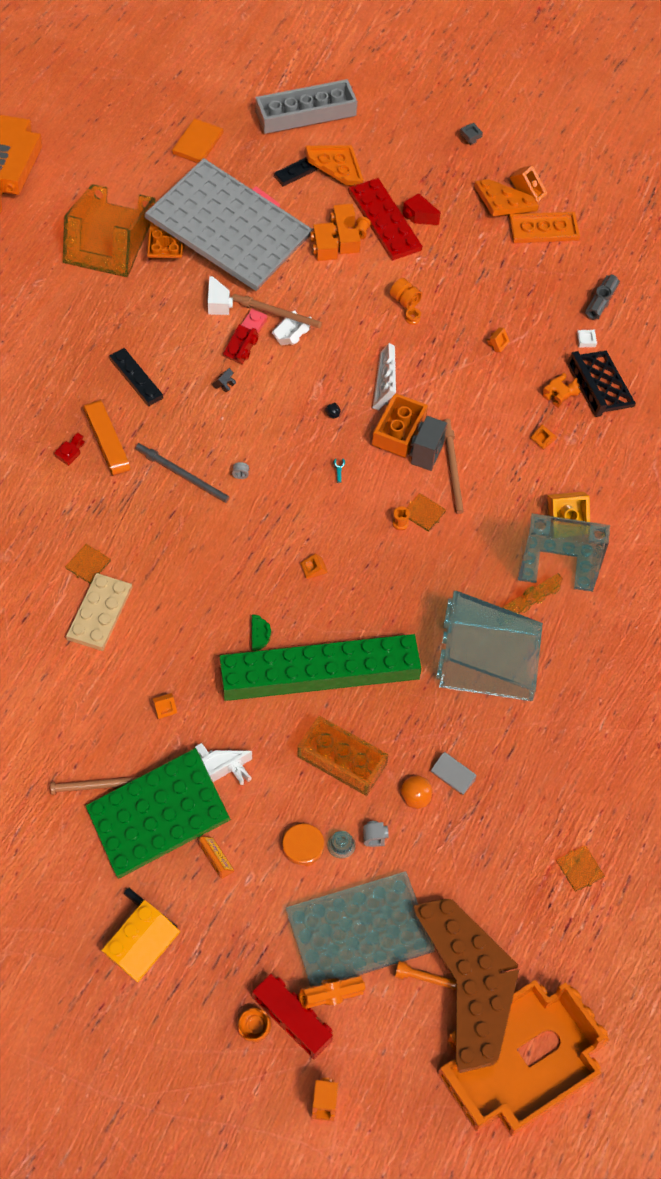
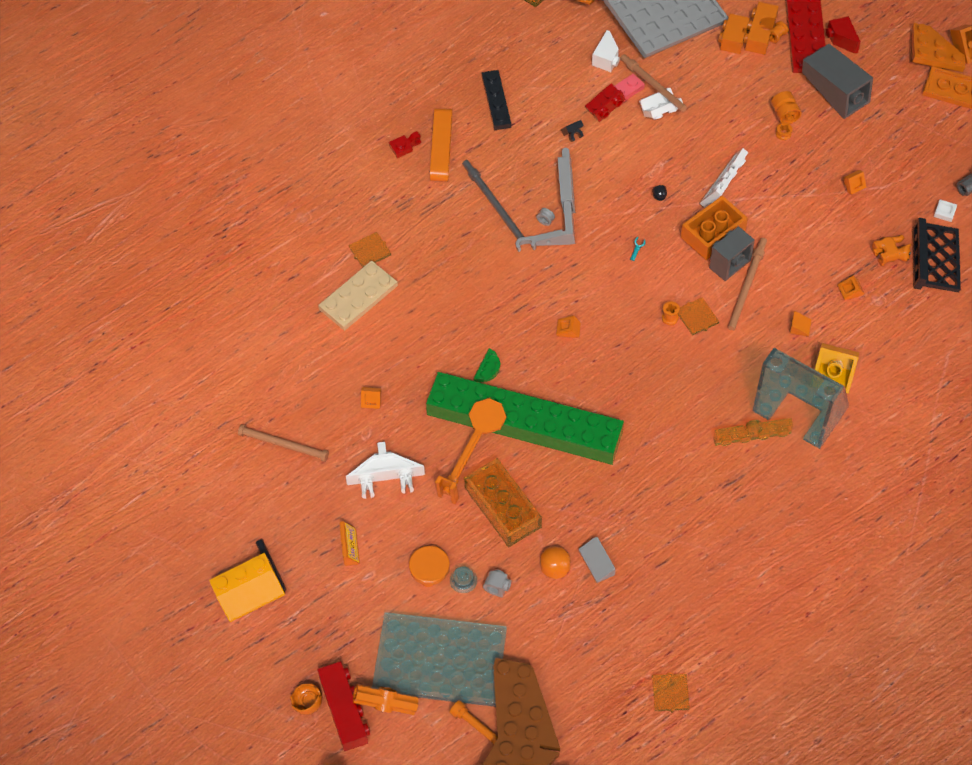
camera: 30 degrees right, 0 degrees up
(157, 813) = (316, 486): green plate -> none
(256, 452) = (568, 204): none -> light grey hinge
(289, 681) = (485, 417): none -> orange piece
(439, 252) = (838, 80): none -> dark grey slope
(489, 649) = (685, 460): clear light blue windscreen -> none
(517, 485) = (800, 324): none -> orange slope

